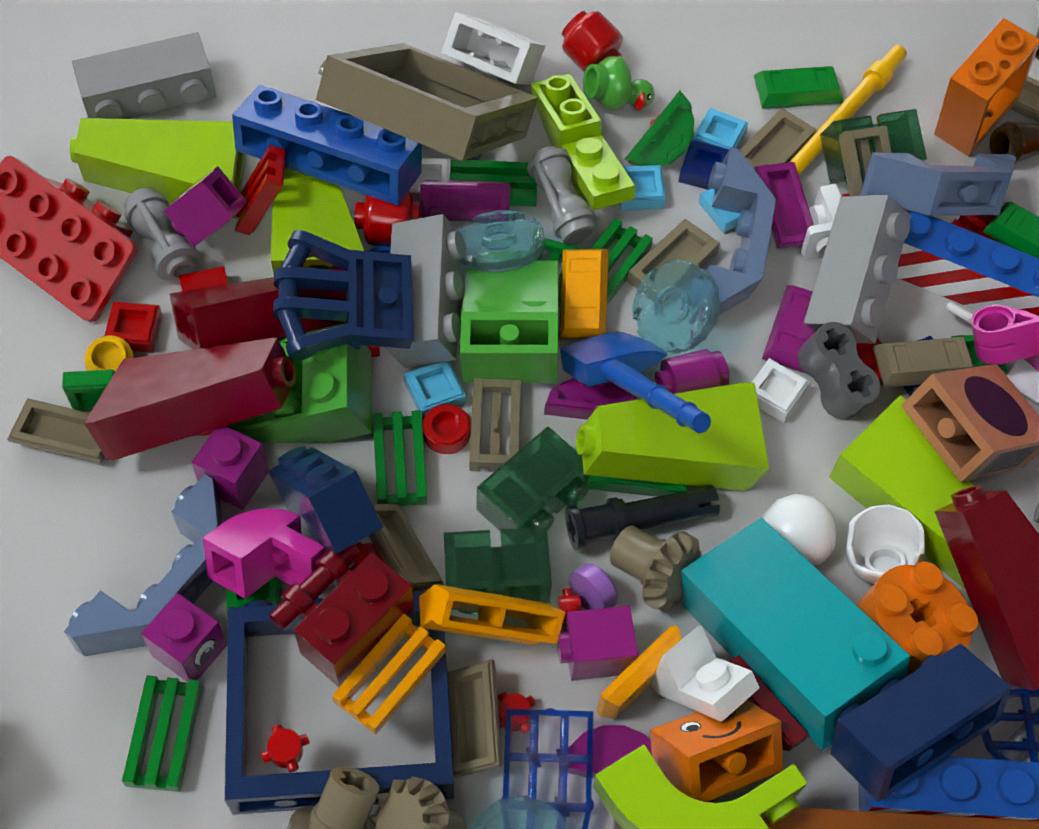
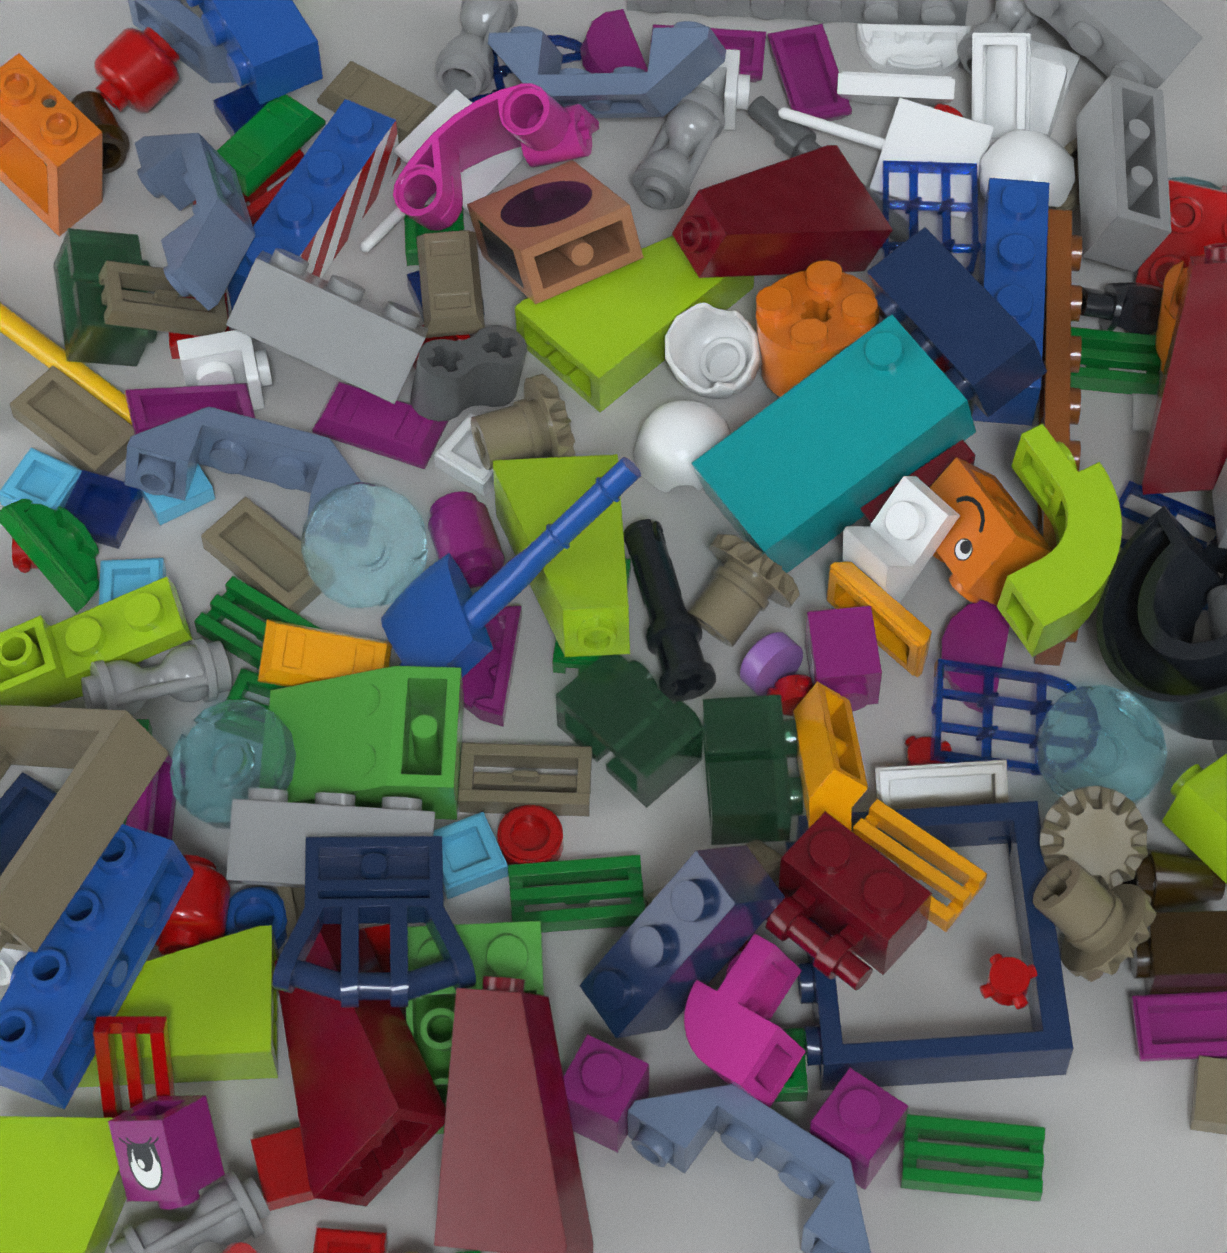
camera: 85 degrees left, 0 degrees up
(789, 410) = (527, 428): none -> dark tan gear

